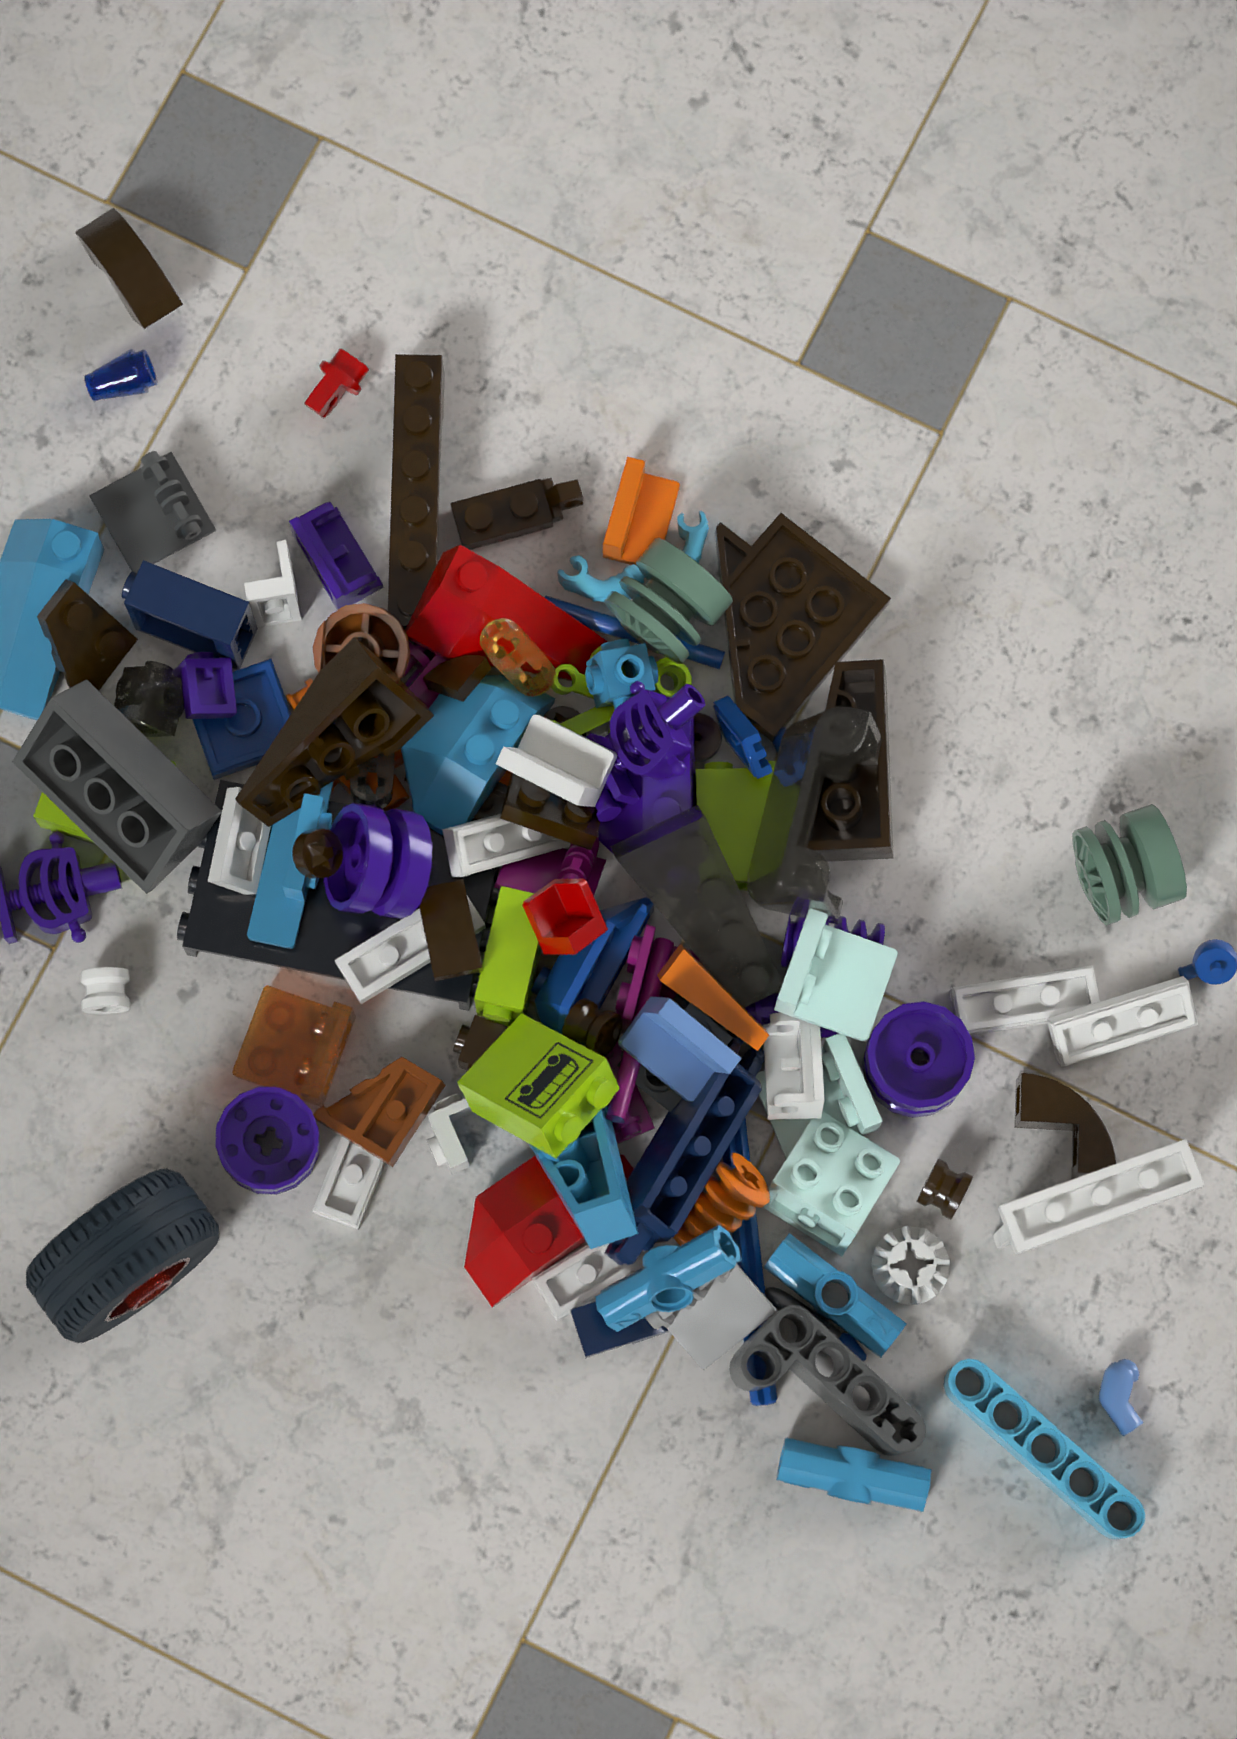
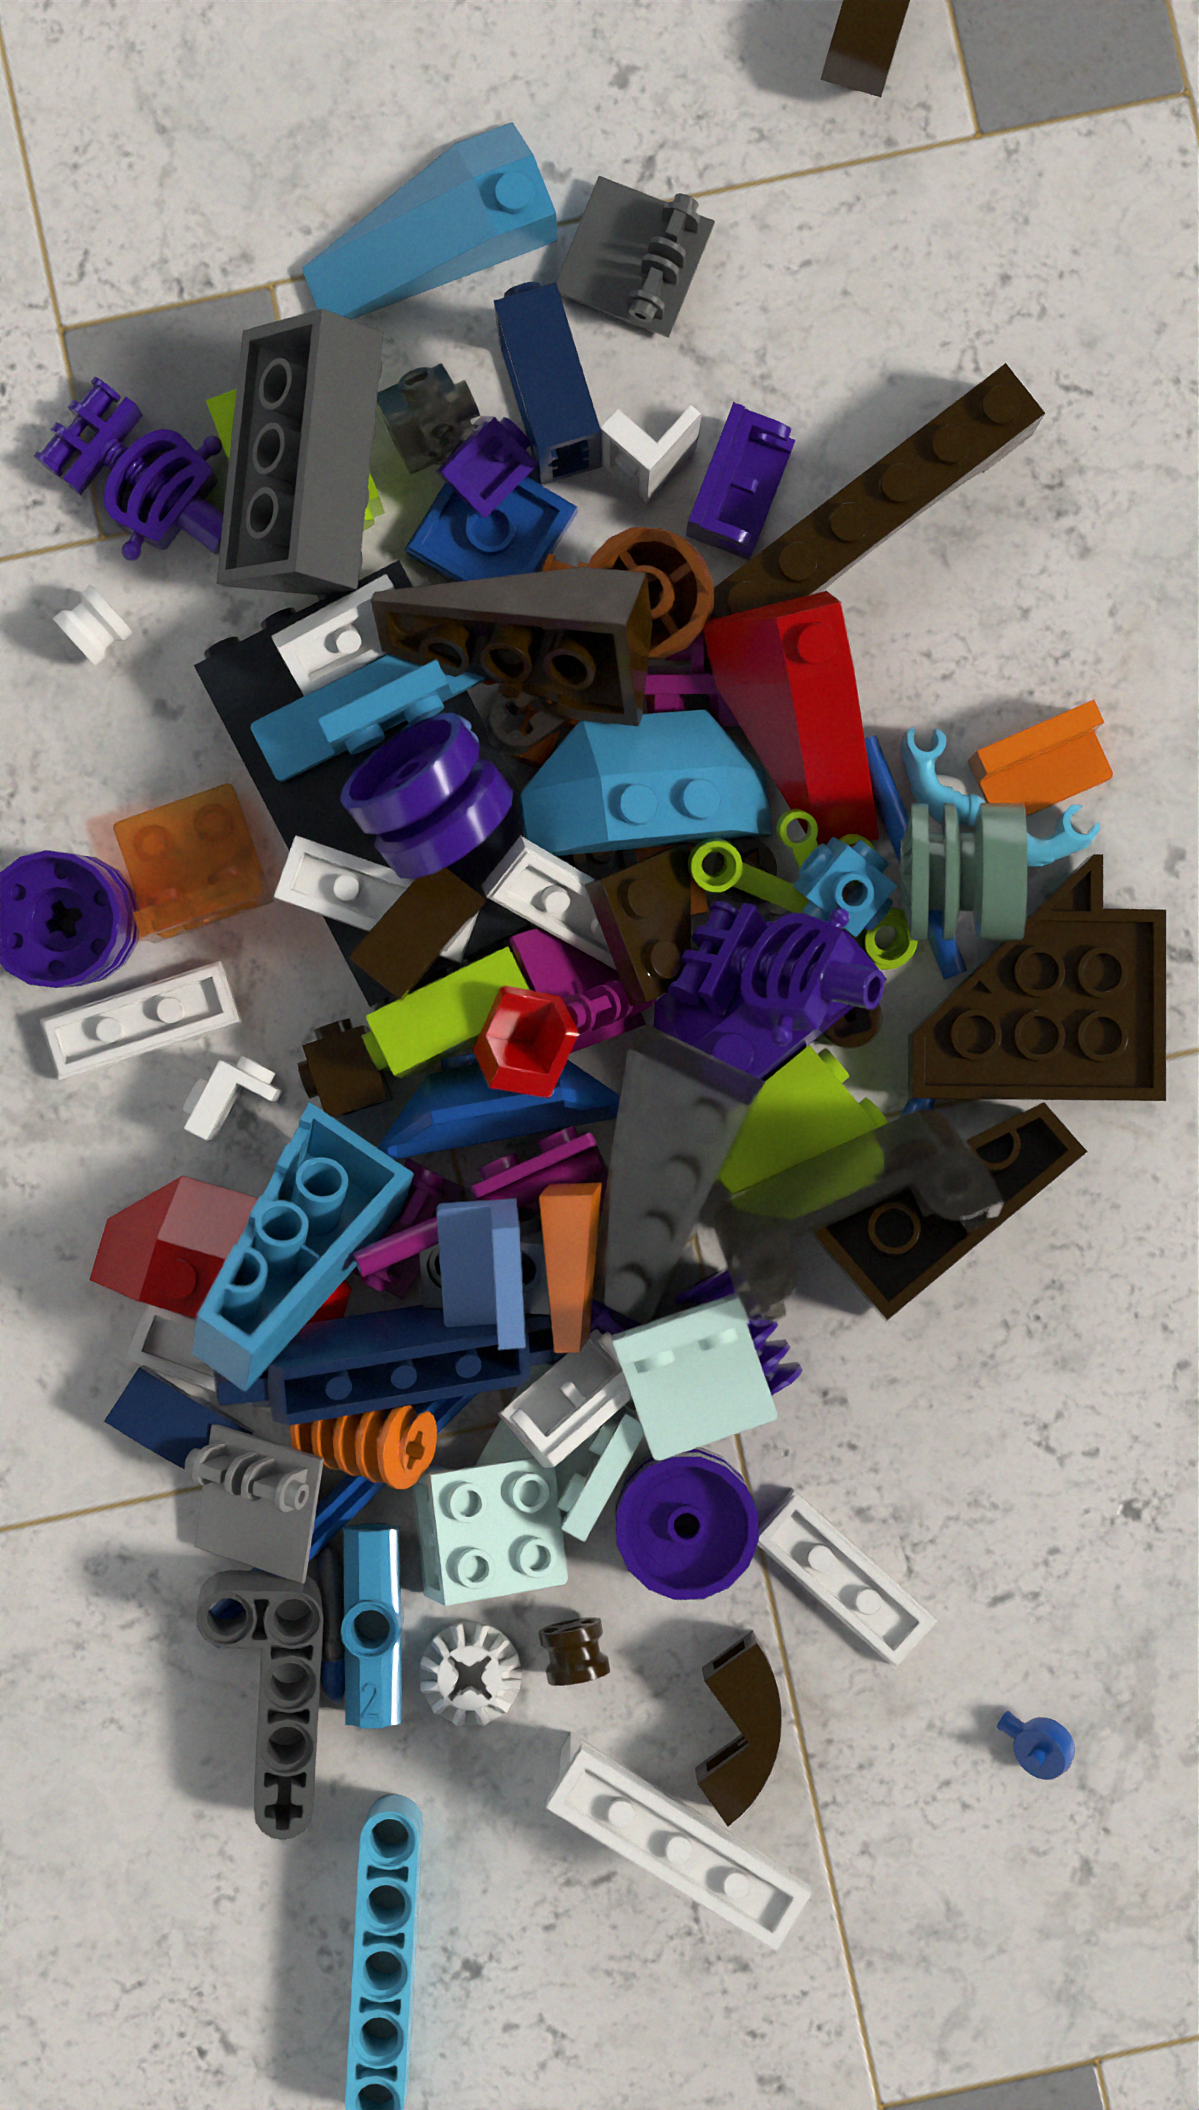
camera: 55 degrees right, 10 degrees up
(83, 636) = (436, 296): dark brown wing -> none
(123, 376) = (753, 102): clear blue cone -> none
(317, 853) = (380, 727): dark brown tile -> none
(341, 375) = (940, 326): red piece -> none
(384, 1110) = (192, 1012): dark orange wing -> none
(457, 676) = (705, 716): dark brown tile -> none
(511, 663) = (762, 760): clear yellow beam -> none
(513, 511) = (940, 627): dark brown hinge -> none
(539, 1085) = (325, 1159): lime brick -> none
(560, 761) = (692, 899): white panel -> none
(592, 1027) = (436, 1162): dark brown wheel -> none
(668, 1278) = (235, 1453): dark azure piece -> none
(742, 737) = (882, 1067): blue tile -> none
(854, 1474) = (205, 1787): dark azure piece -> none
(1115, 1395) = (503, 1990): medium blue arm -> none
(1122, 1021) = (902, 1699): white tile -> none
(1139, 861) = (1083, 1589): sand green wheel -> none

